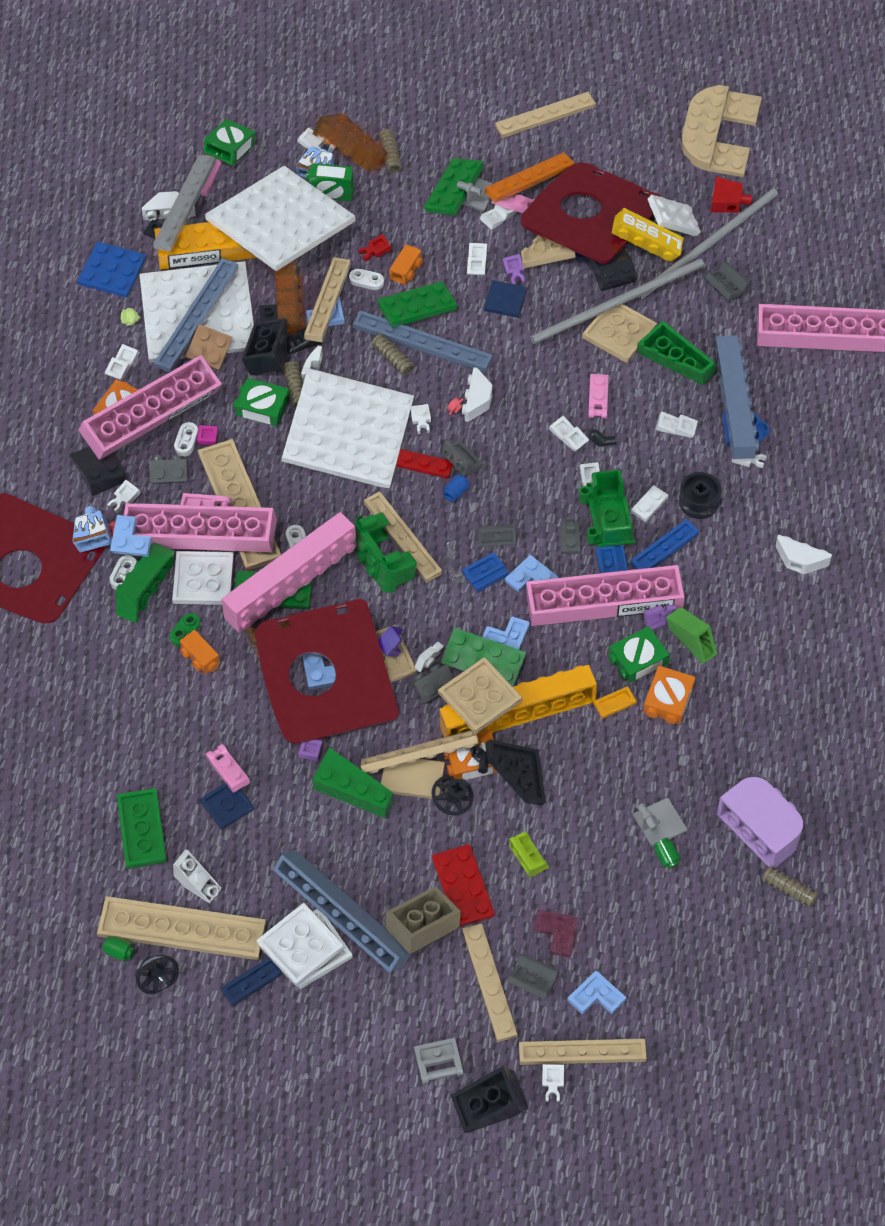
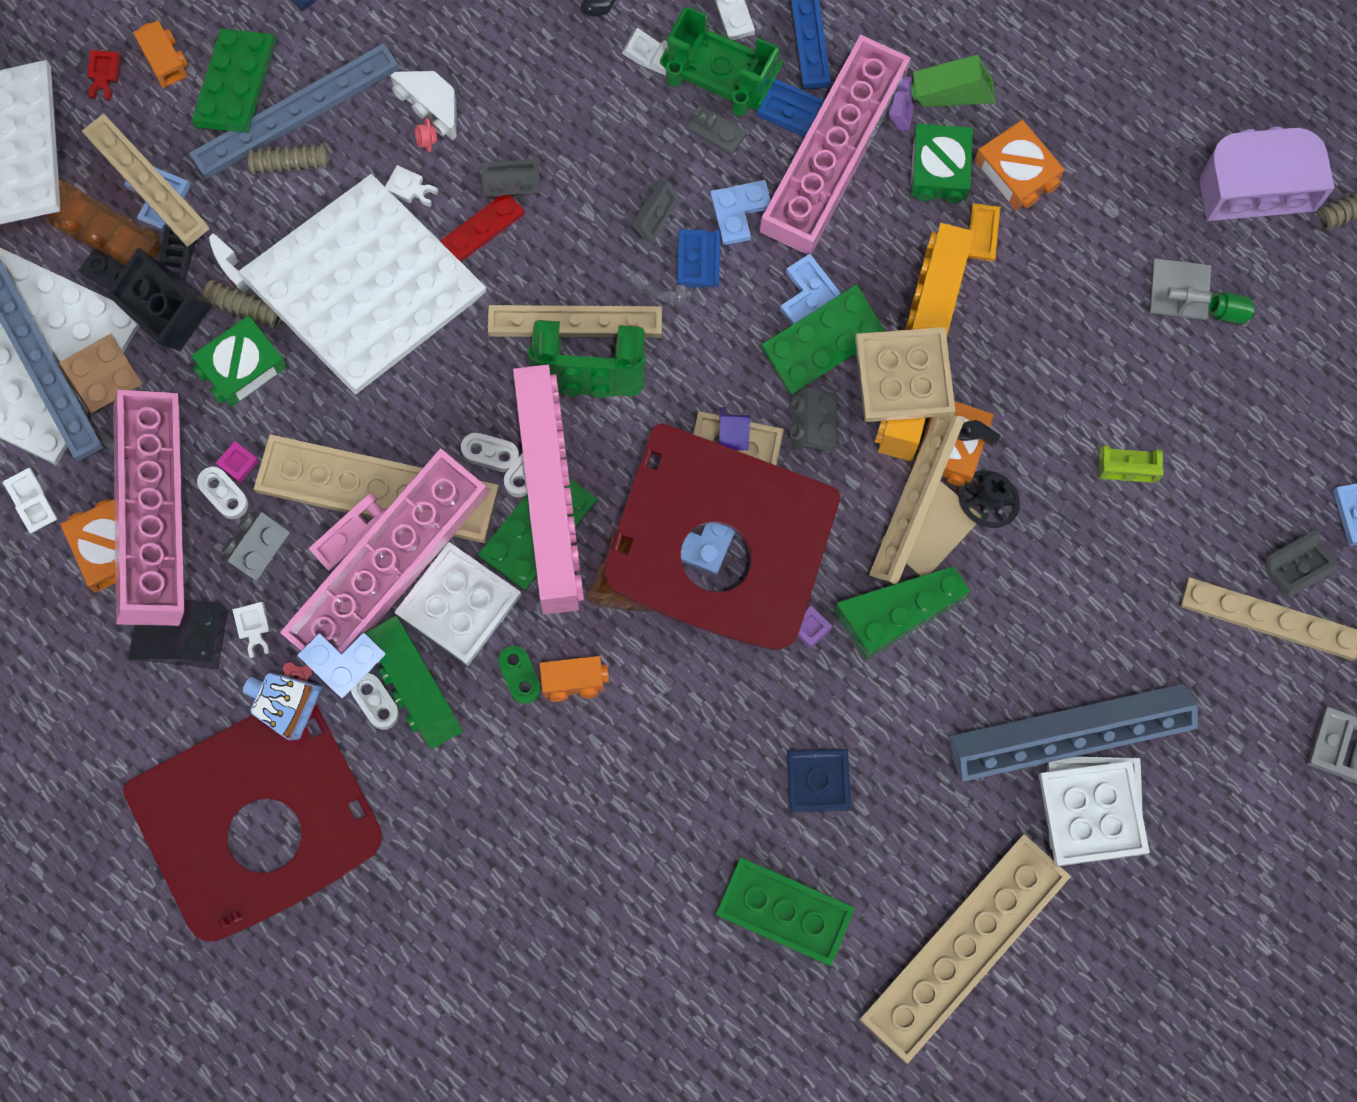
camera: 60 degrees left, 15 degrees up
(118, 948) = (946, 1047): green brick -> none
(155, 971) = (1010, 1020): black wheel -> none
(194, 877) = (911, 886): white slope -> none
(228, 768) = (771, 747): bright pink plate -> none
(251, 981) = (1097, 906): dark blue plate -> none
(366, 279) = (143, 117): white plate -> none
(422, 919) = (1156, 643): dark tan brick -> none
(427, 659) = (779, 404): white plate -> none
(455, 488) = (550, 213): blue brick -> none
(463, 884) = (1121, 566): red plate -> none
(519, 768) = (1014, 399): black plate -> none
(562, 929) = (1255, 490): clear pink plate -> none
(568, 434) = (571, 34): white slope -> none

